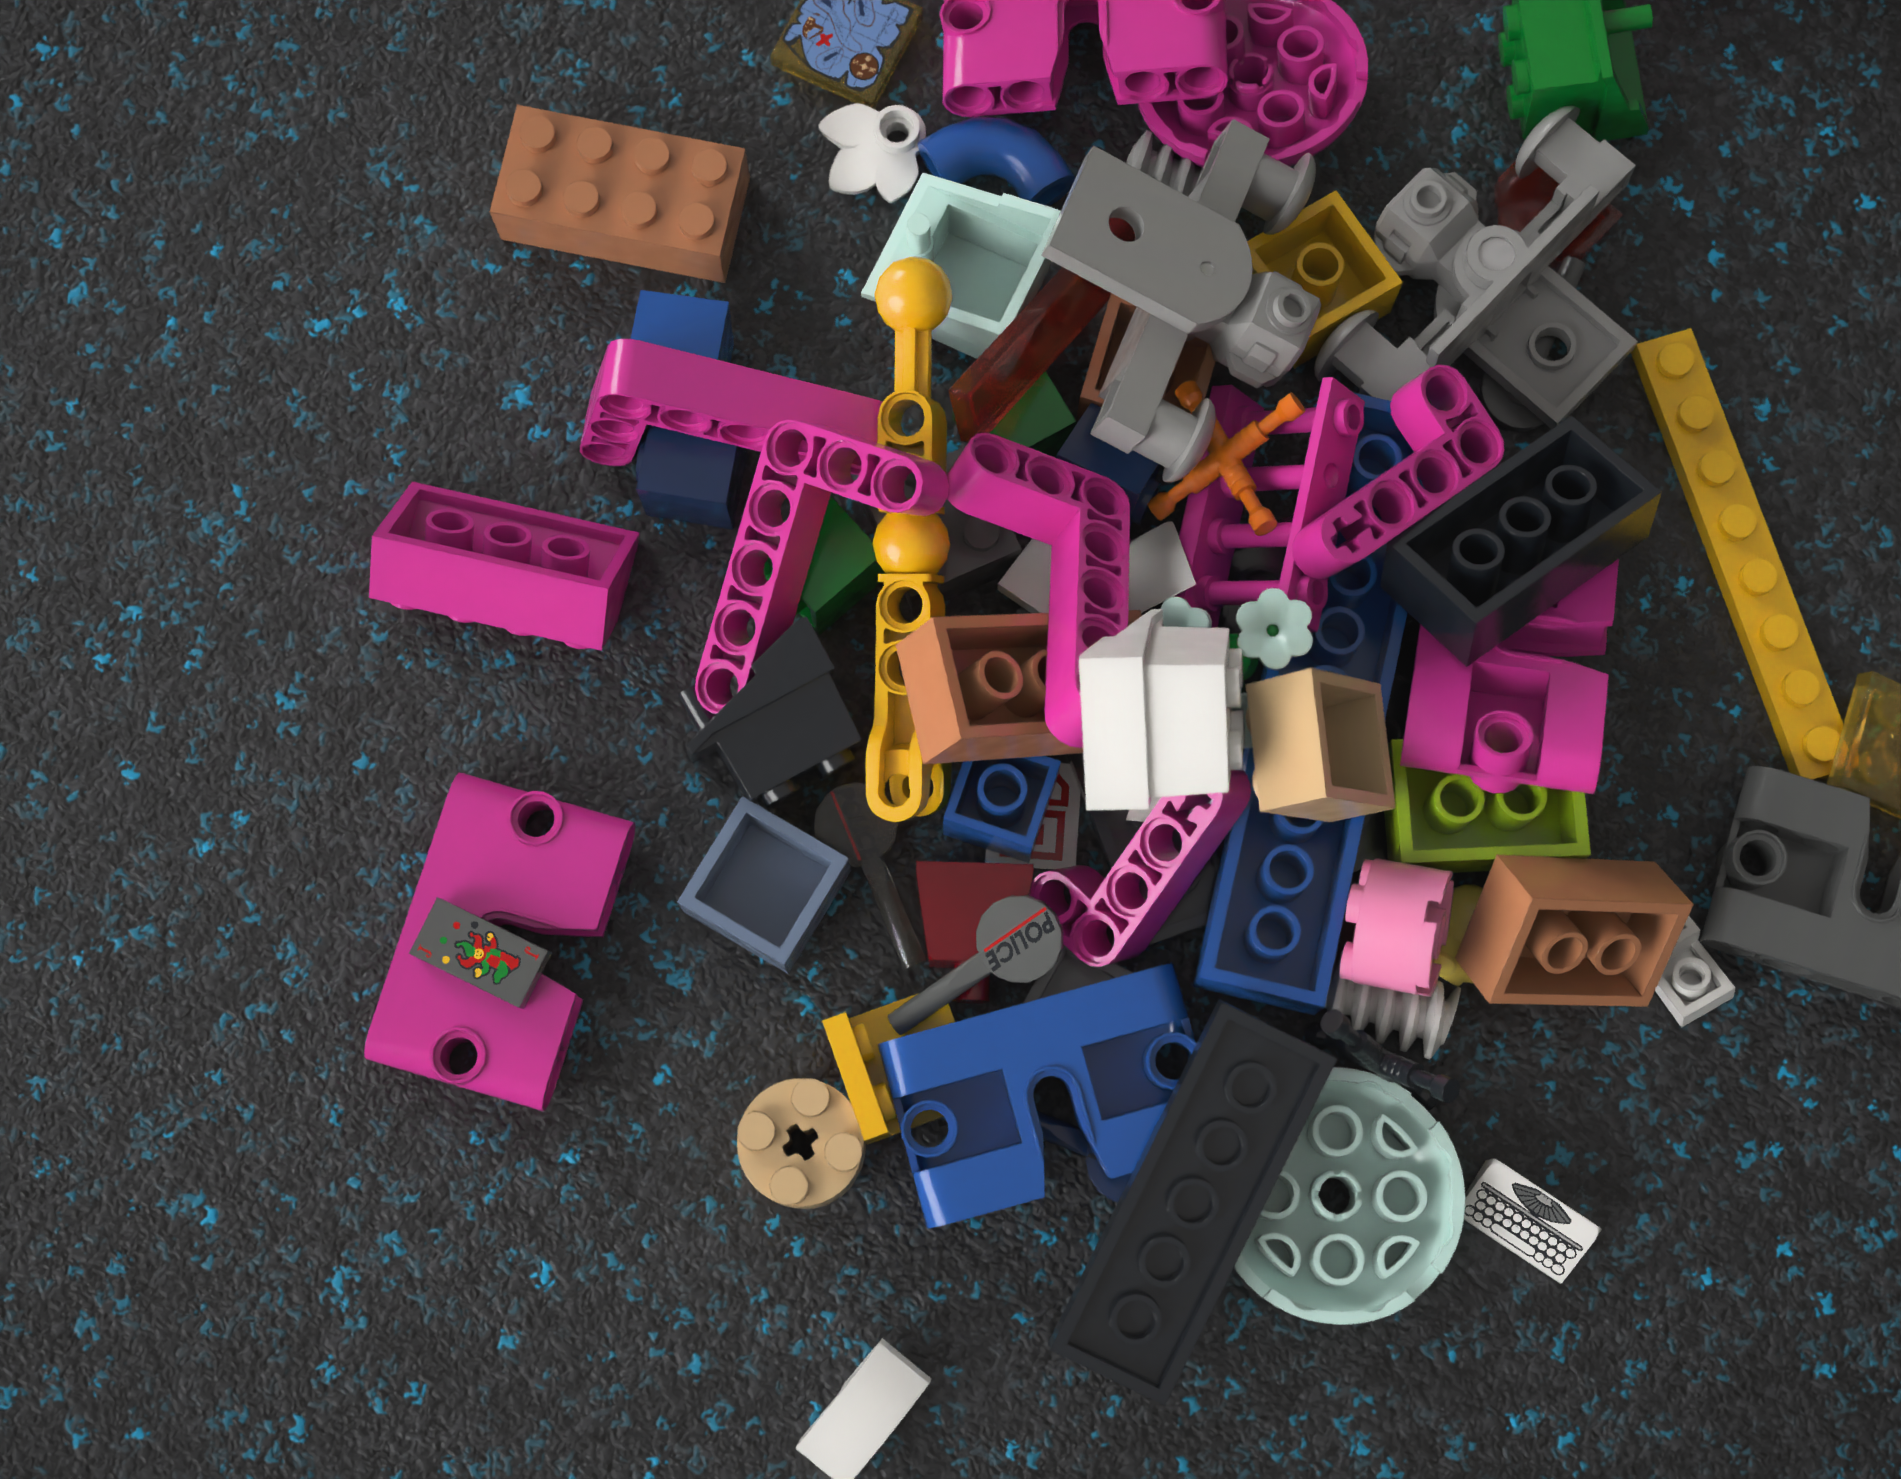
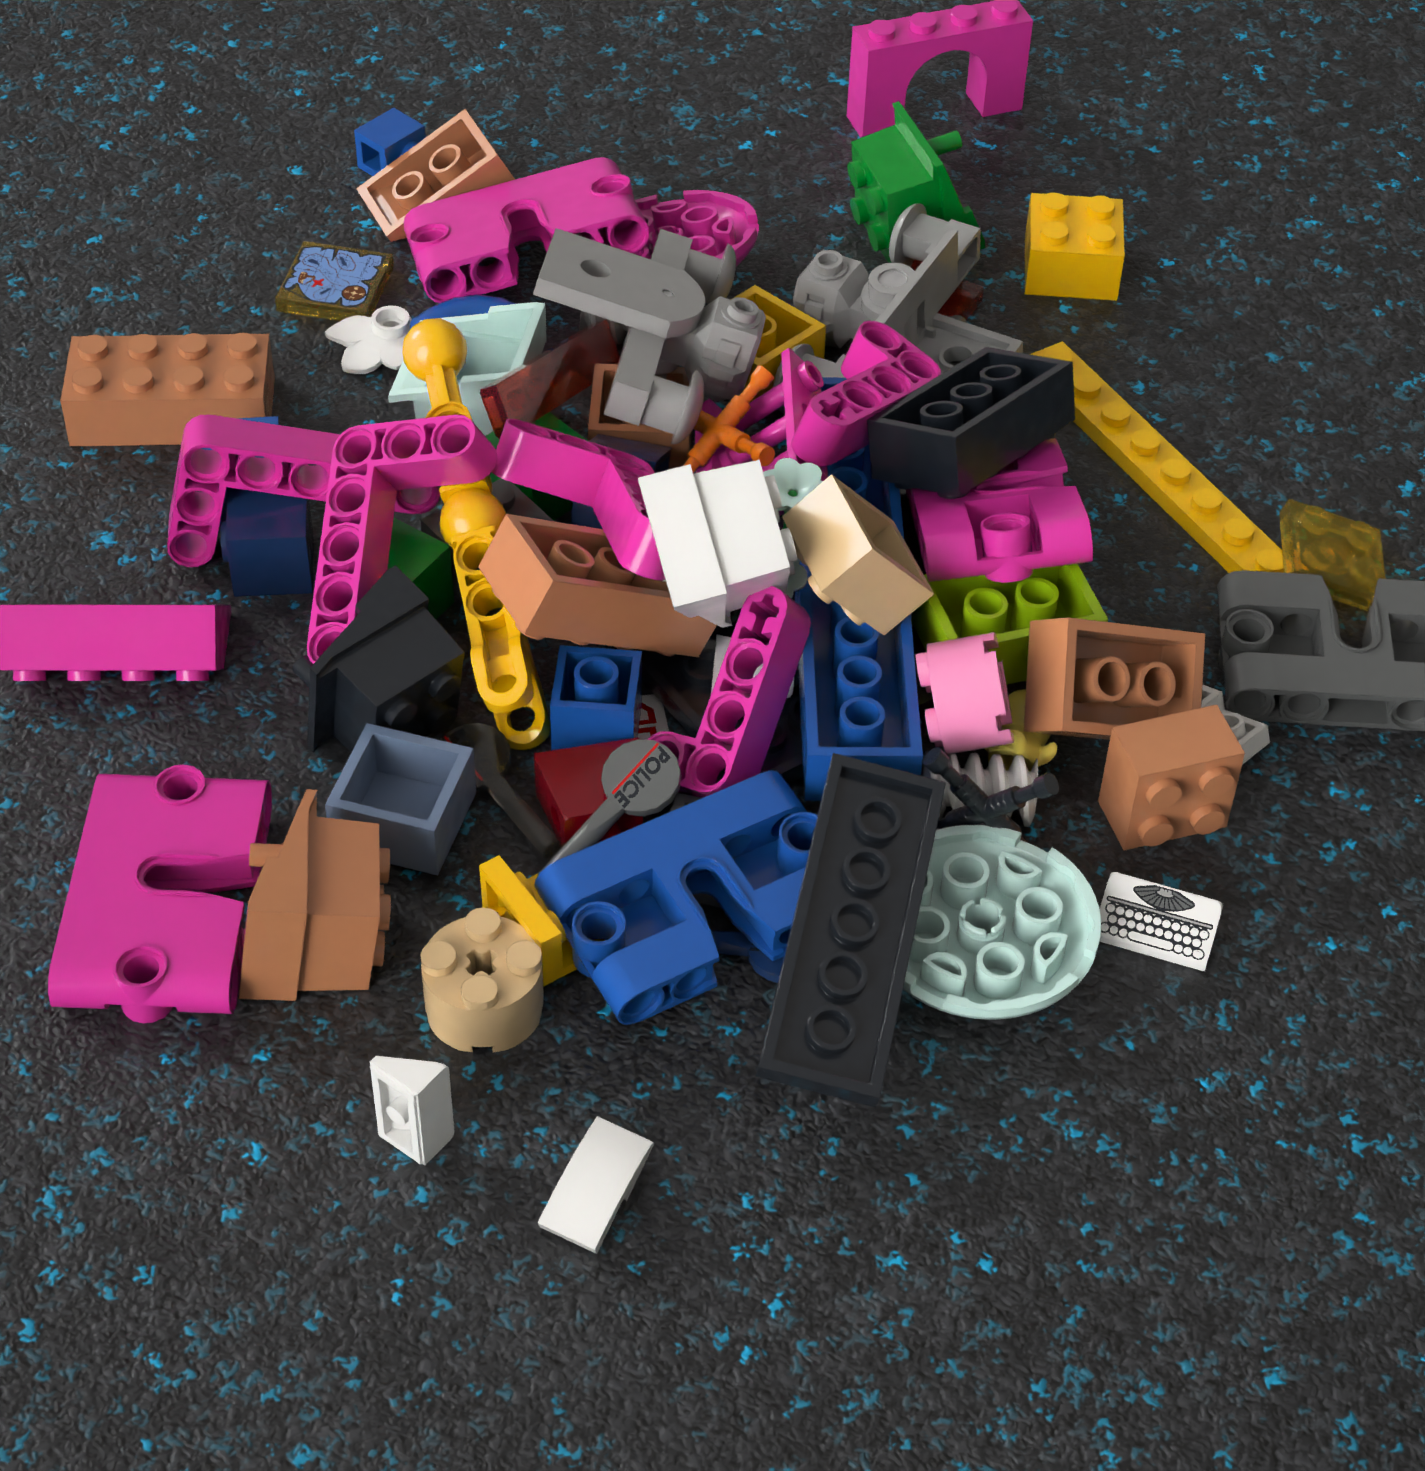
camera: 15 degrees left, 30 degrees down
(480, 953) = (148, 881): dark grey tile -> none
(654, 1024) = (316, 908): none -> nougat piece
(694, 1303) = (413, 1105): none -> white slope
(1597, 1055) = (1170, 777): none -> nougat brick
(1754, 173) = (1074, 246): none -> yellow piece

